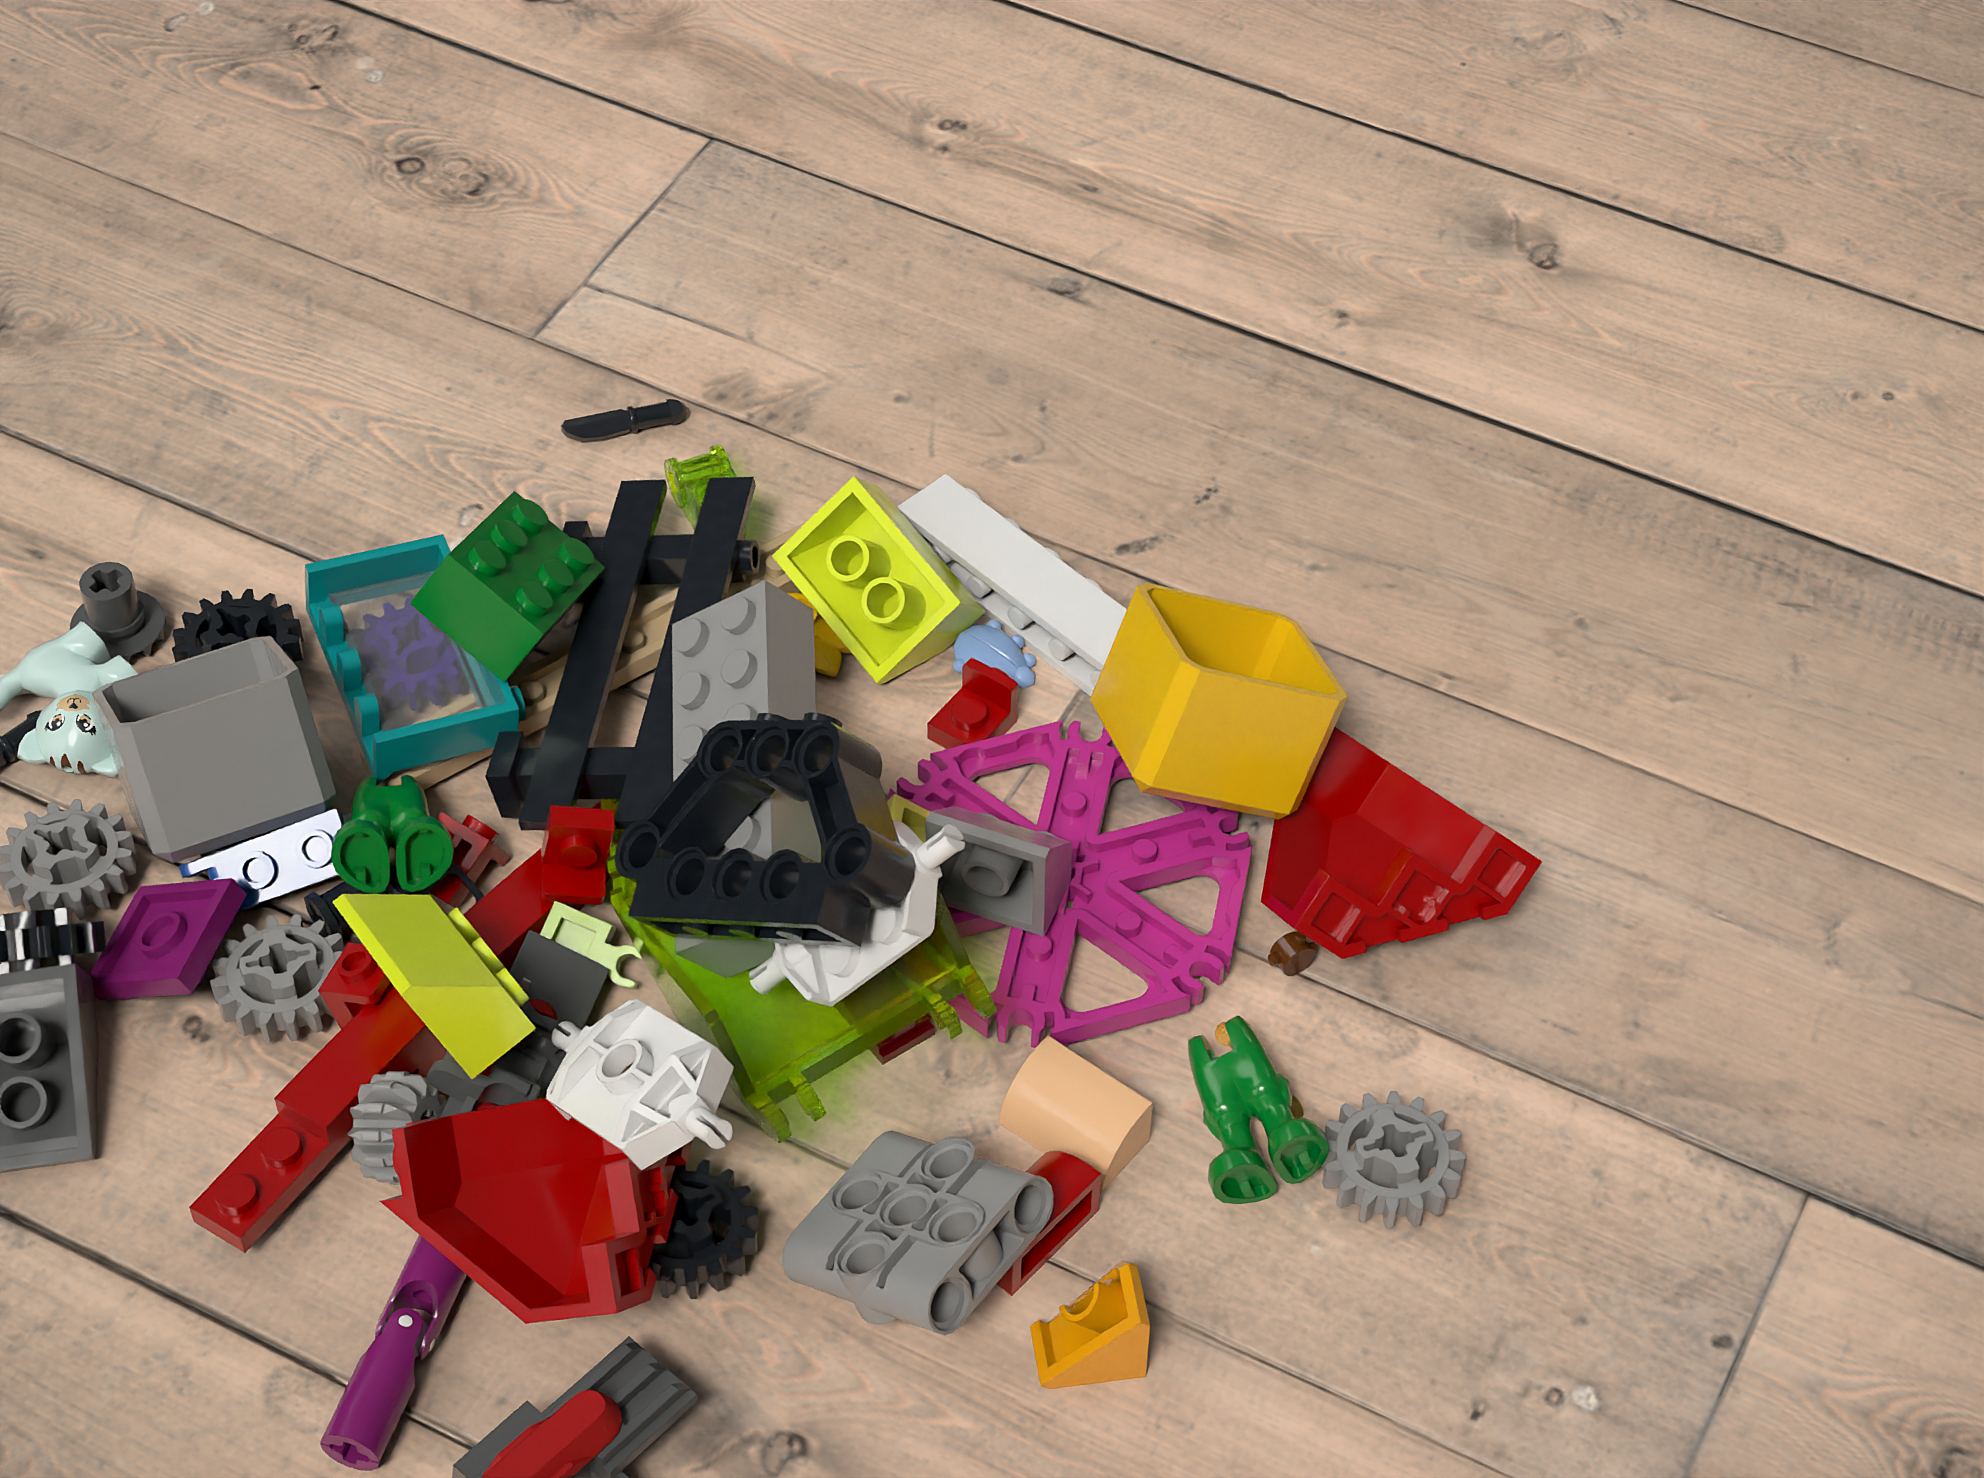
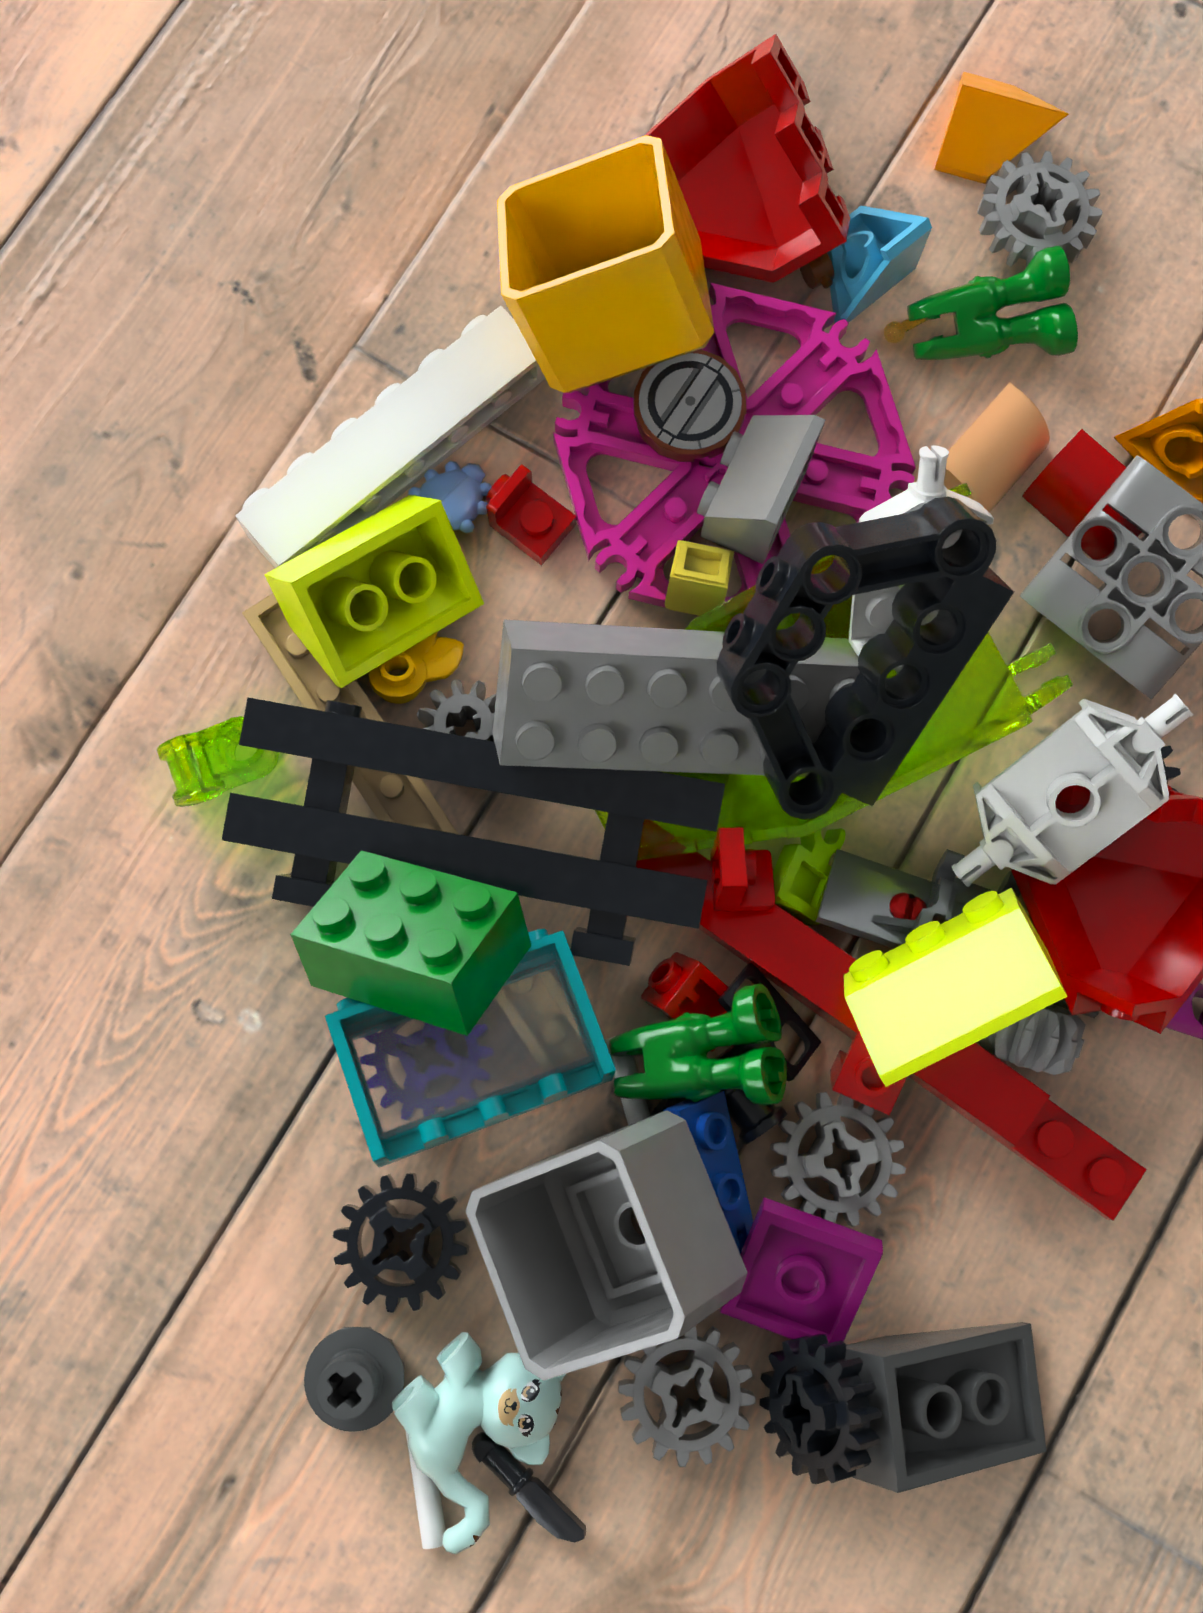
camera: 90 degrees left, 30 degrees up
(620, 421) = (93, 855): black piece -> none
(1103, 818) = (689, 406): none -> tile
(1309, 1003) = (877, 256): none -> medium azure slope
(1510, 1104) = (990, 126): none -> light orange slope

